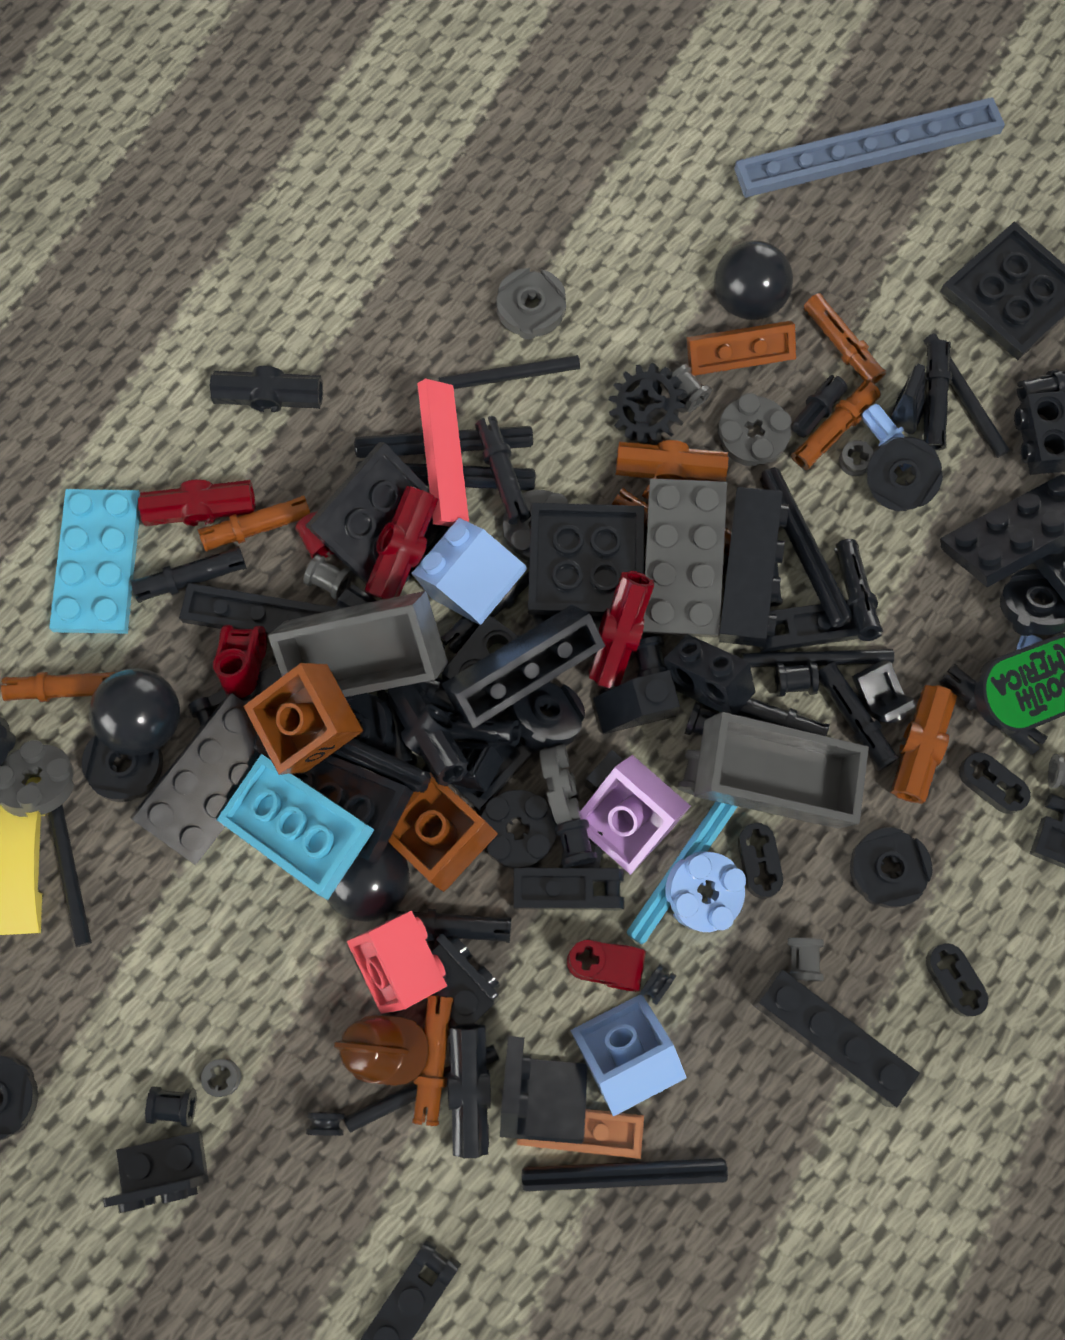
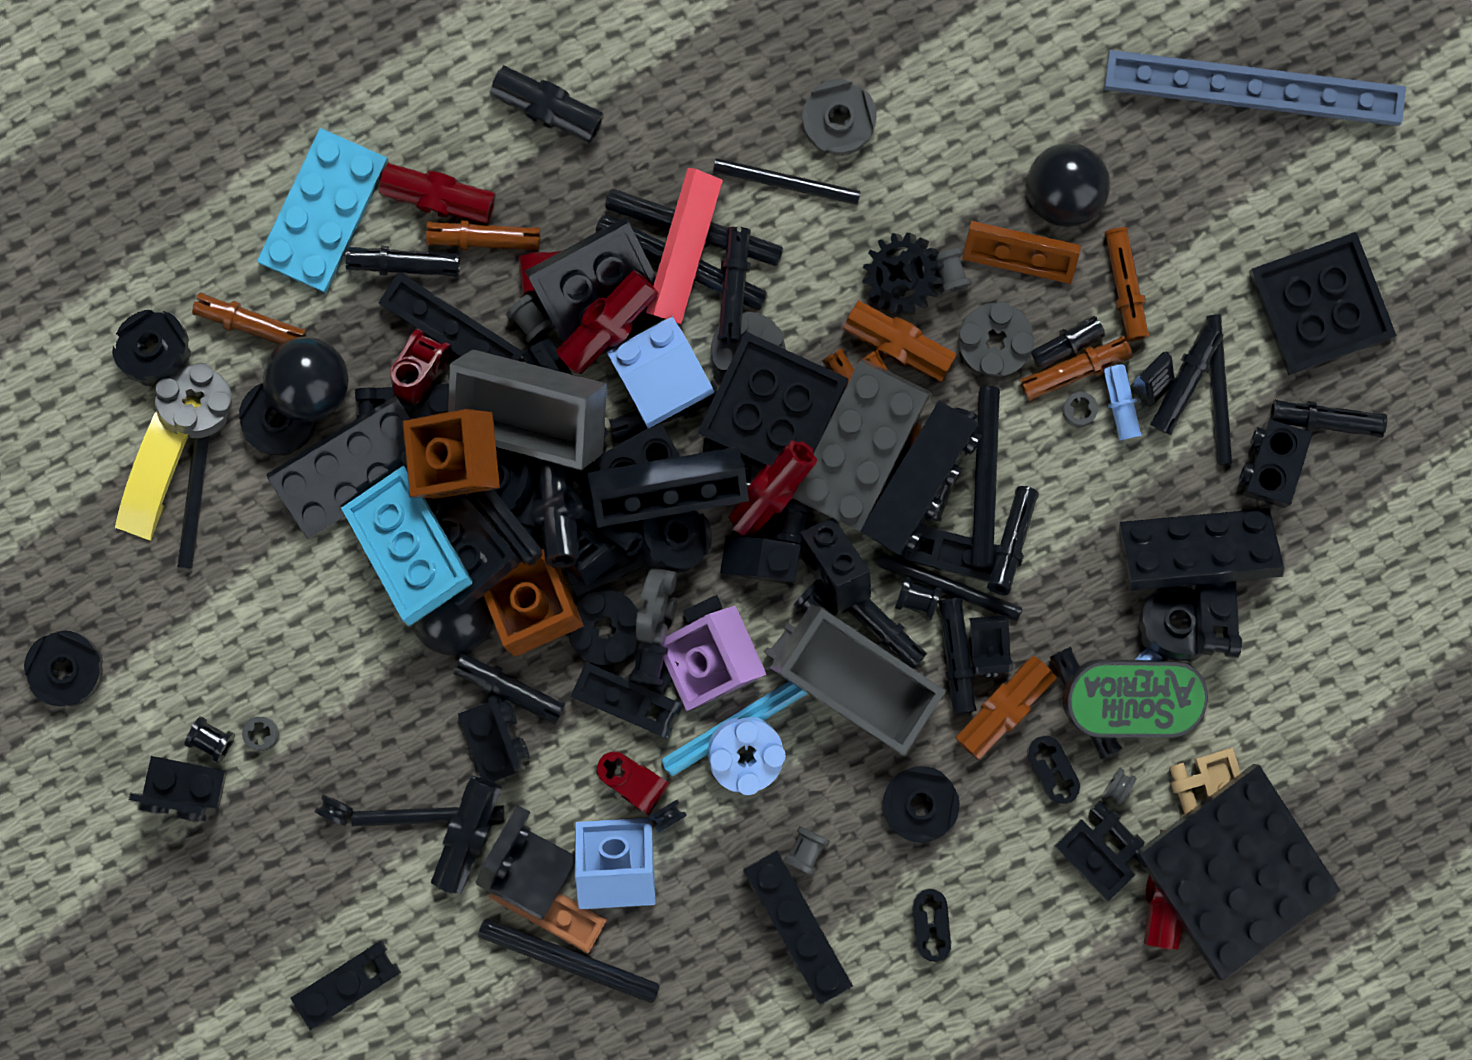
camera: 25 degrees right, 10 degrees up
(384, 1050) = (408, 770): reddish brown piece -> none
(398, 963) = (449, 702): coral slope -> none
(431, 1078) = (445, 797): dark orange pin -> none
(769, 858) = (817, 751): black beam -> none
(925, 467) = (1119, 426): black plate -> none

